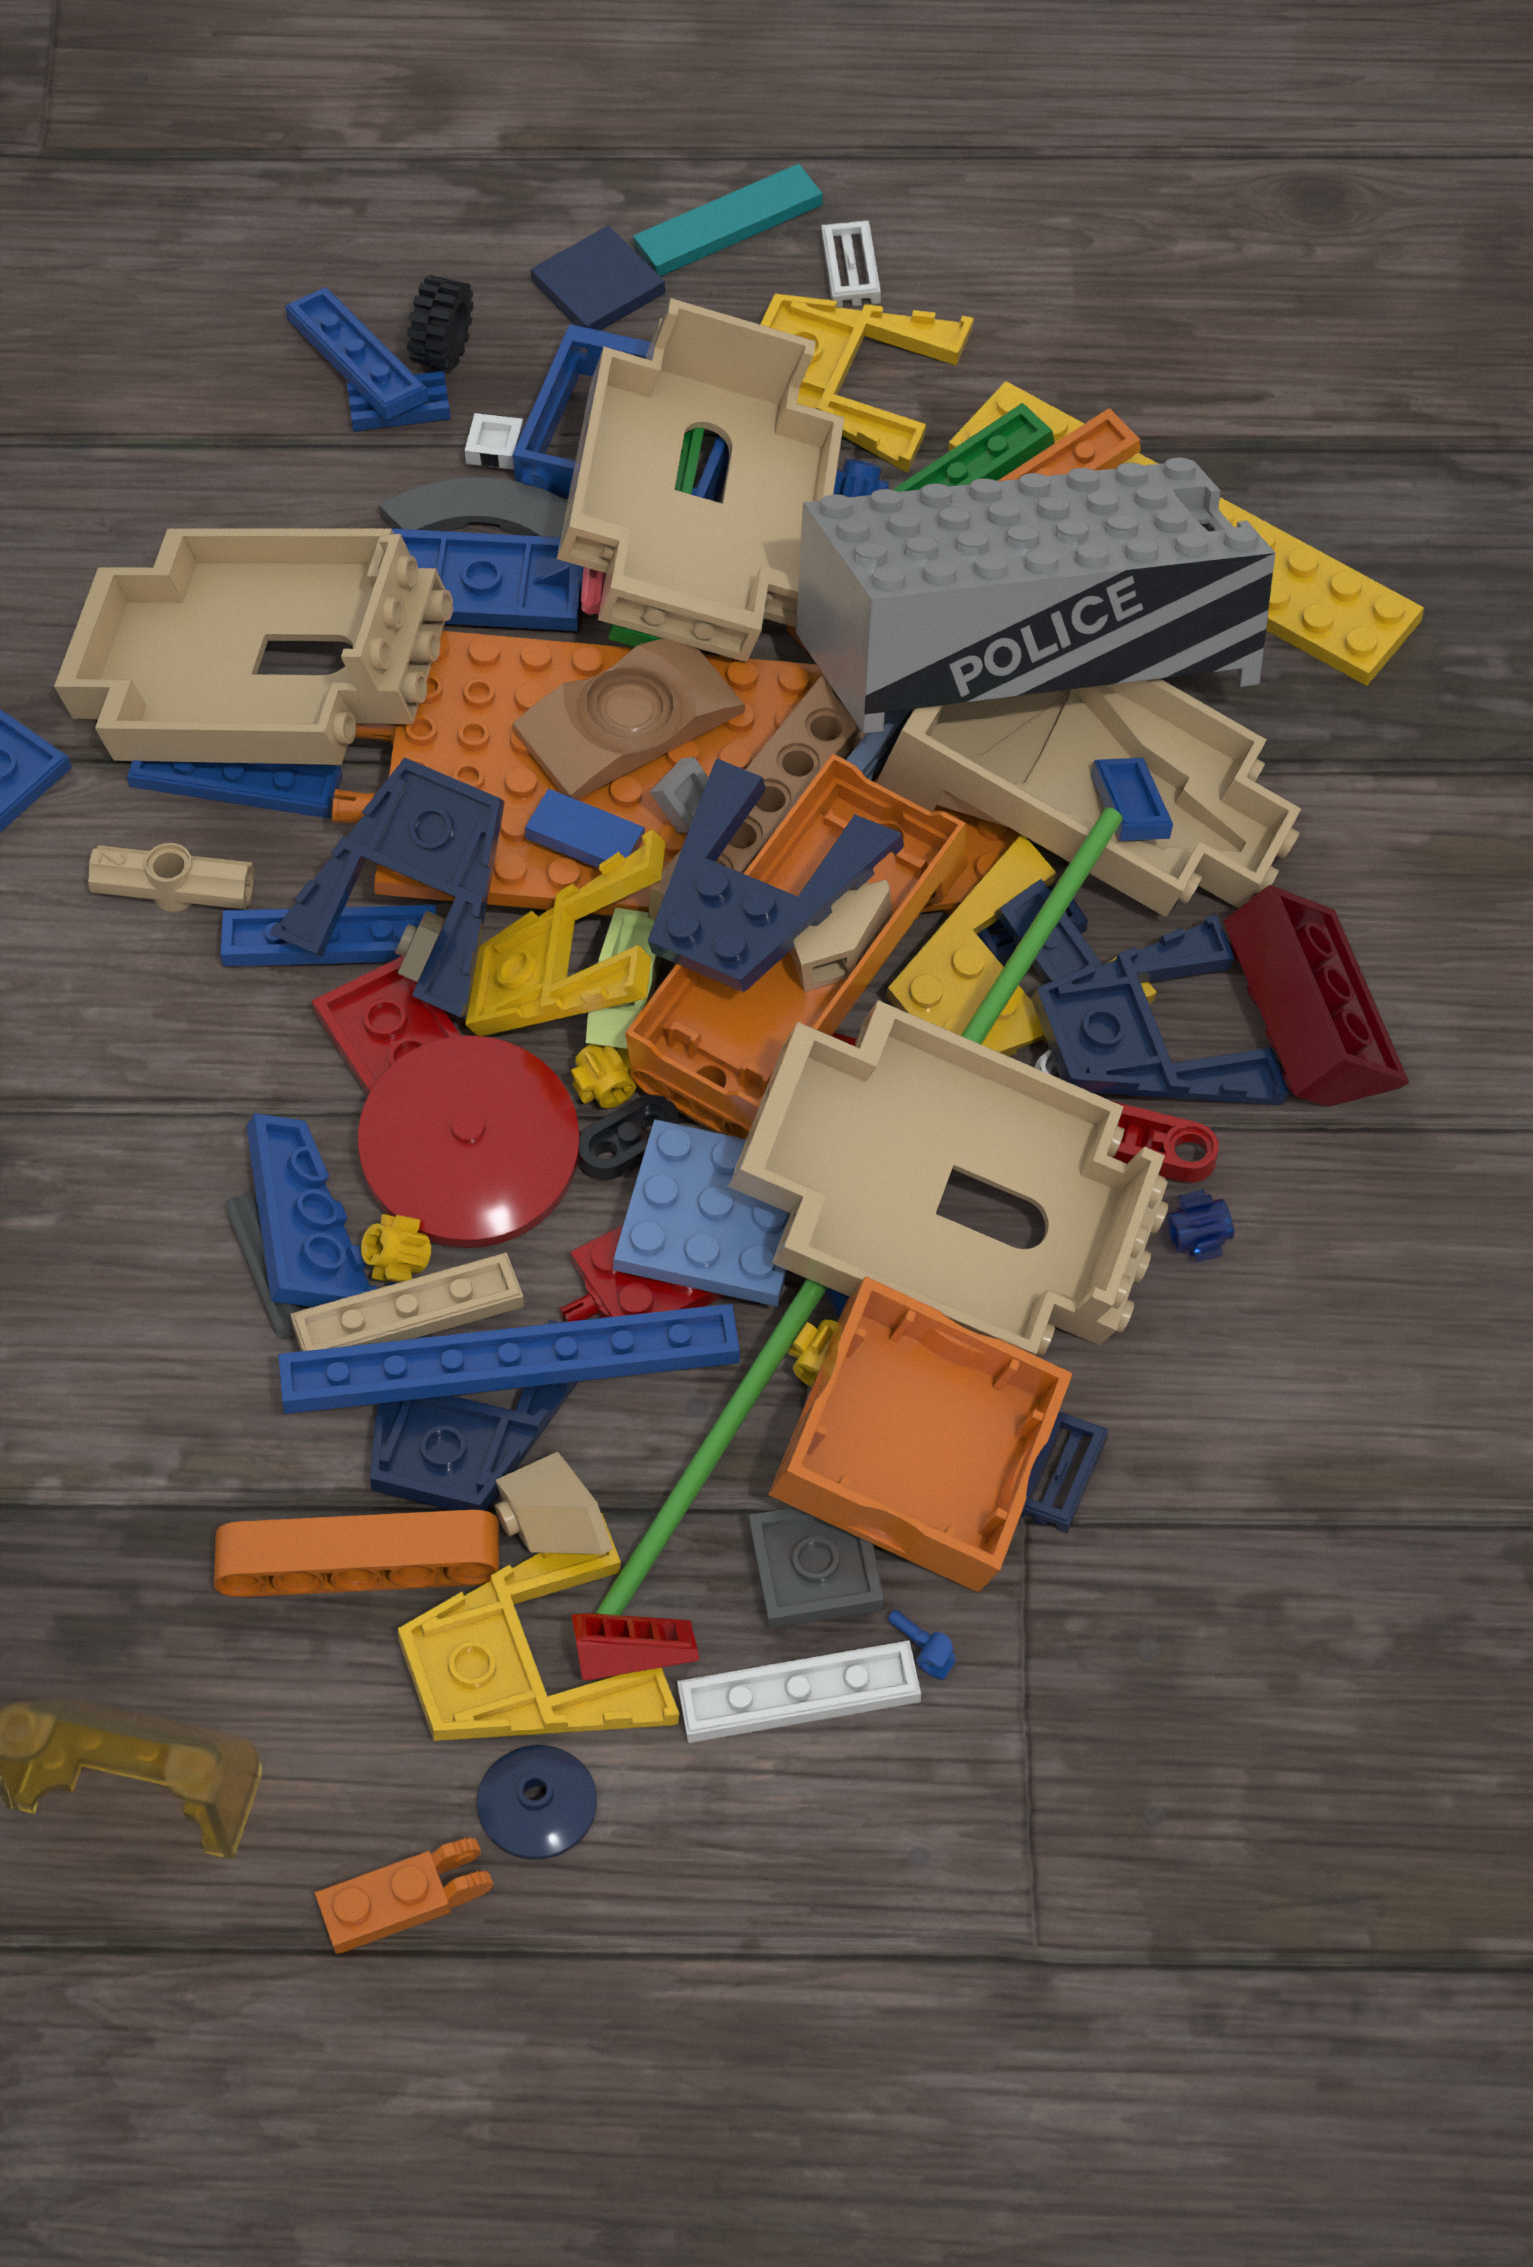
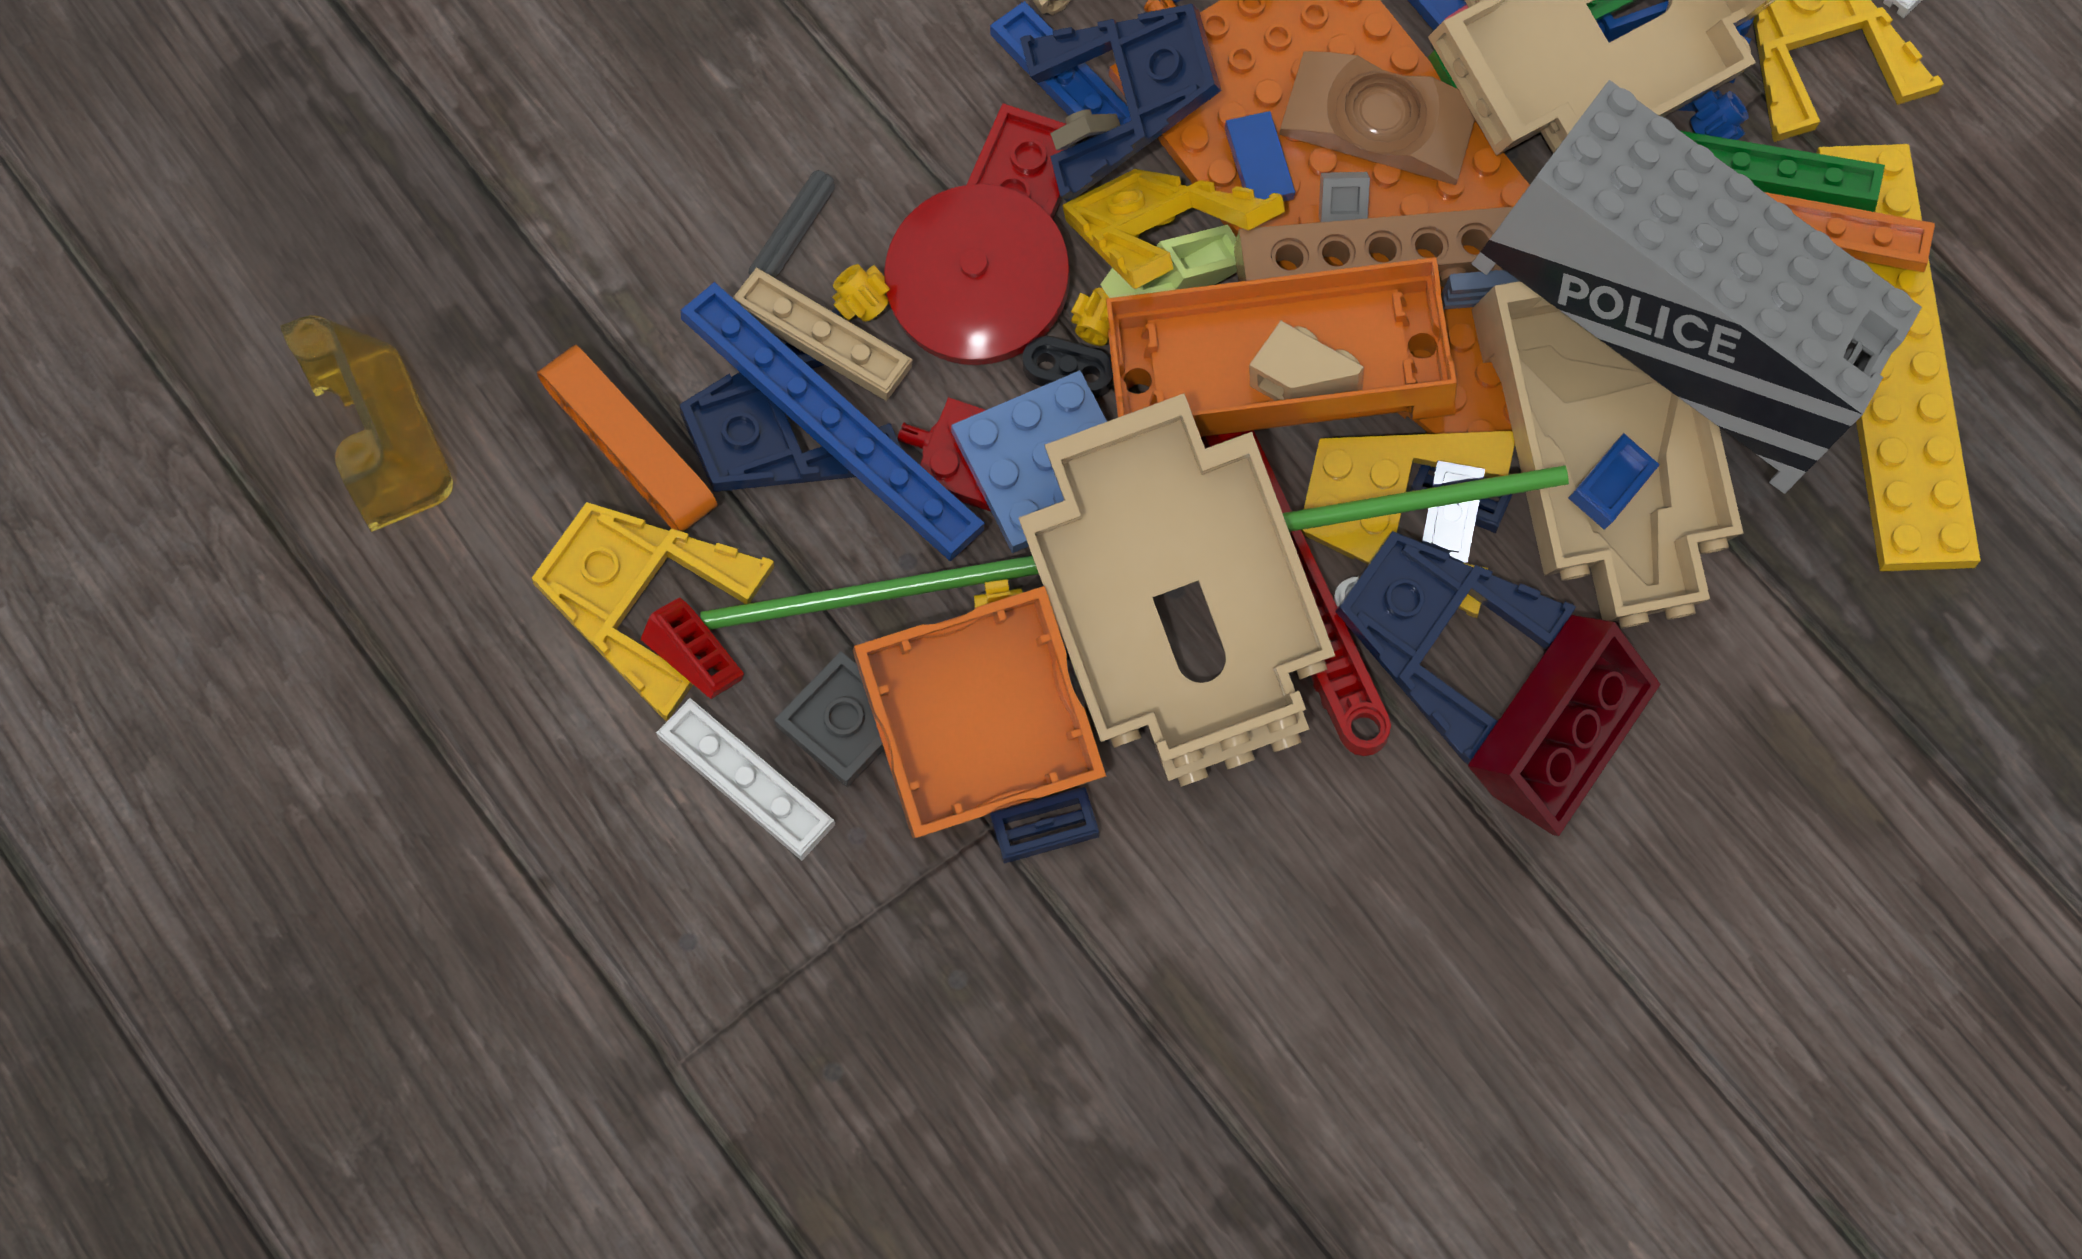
camera: 50 degrees right, 10 degrees up
(300, 1222) = (836, 222): blue wing -> none
(400, 1895) = (412, 645): orange hinge -> none
(541, 1826) = (547, 698): dark blue dish -> none
(551, 1509) = (744, 527): tan slope -> none
(737, 924) = (1241, 293): dark blue wing -> none
(937, 1649) = (839, 845): blue hand -> none
(1200, 1225) = (1307, 777): clear blue gear -> none

